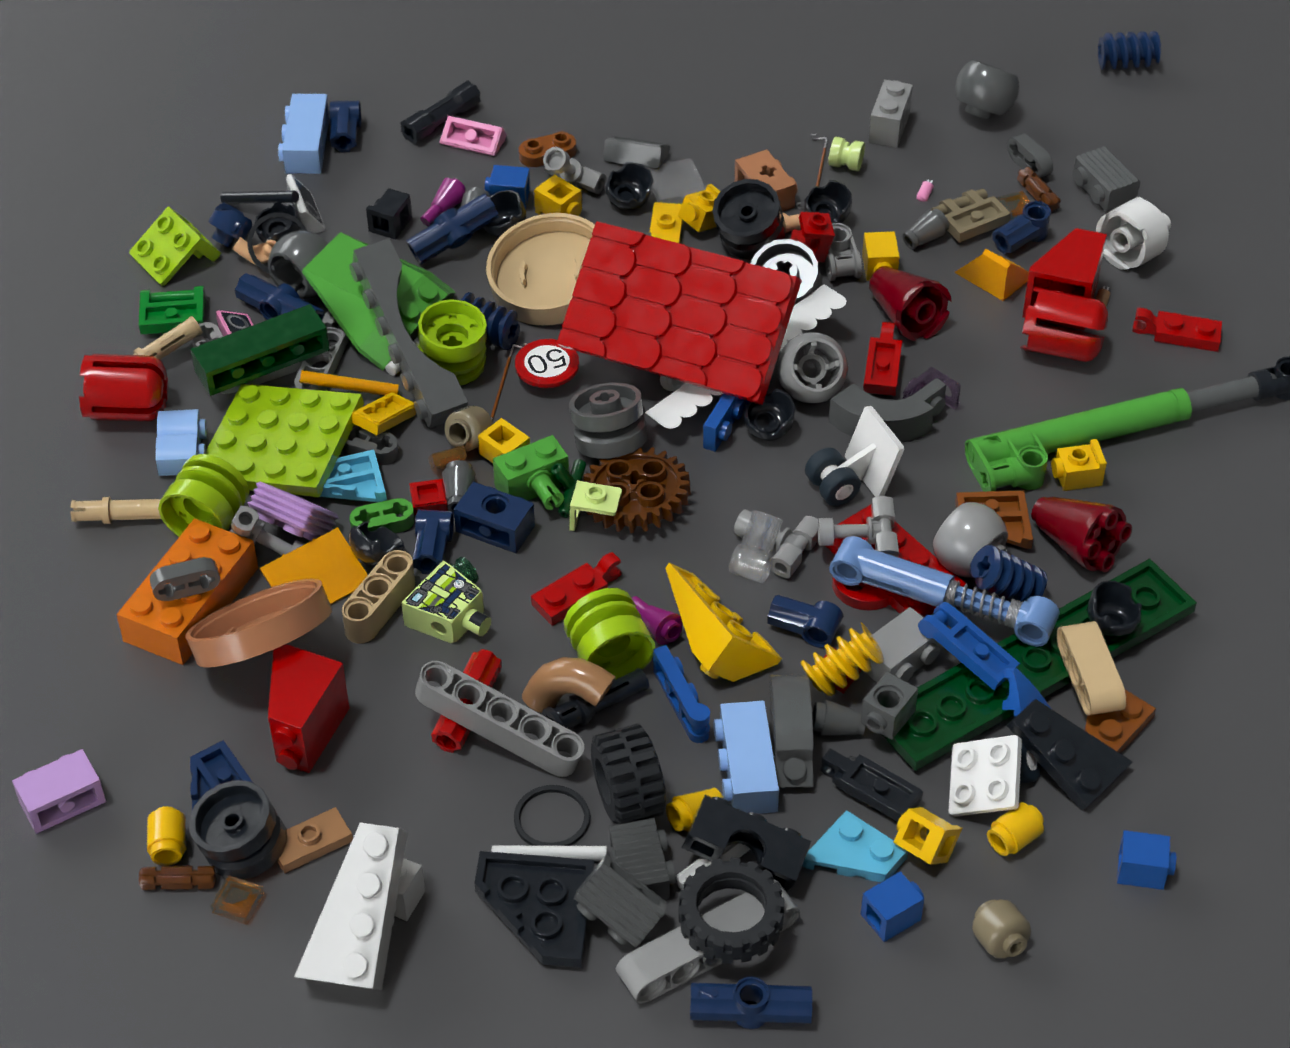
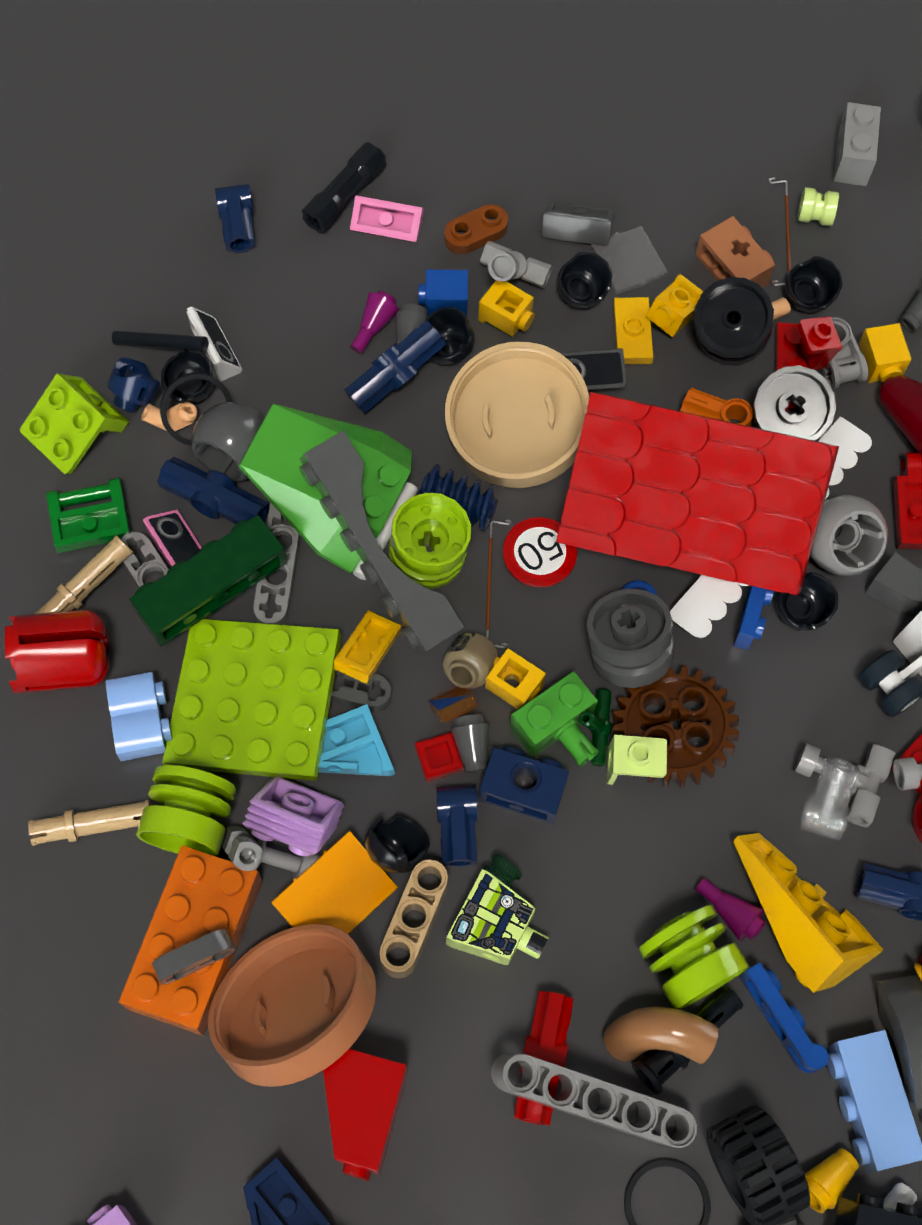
camera: 10 degrees left, 20 degrees up
(304, 134) = (192, 236): light blue brick -> none
(347, 383) = (317, 606): light orange bar -> none
(384, 515) = (388, 789): bright green beam -> none
(389, 214) = (315, 346): black brick -> none
(562, 594) = (632, 876): red plate -> none
(925, 191) = (910, 248): bright pink piece -> none

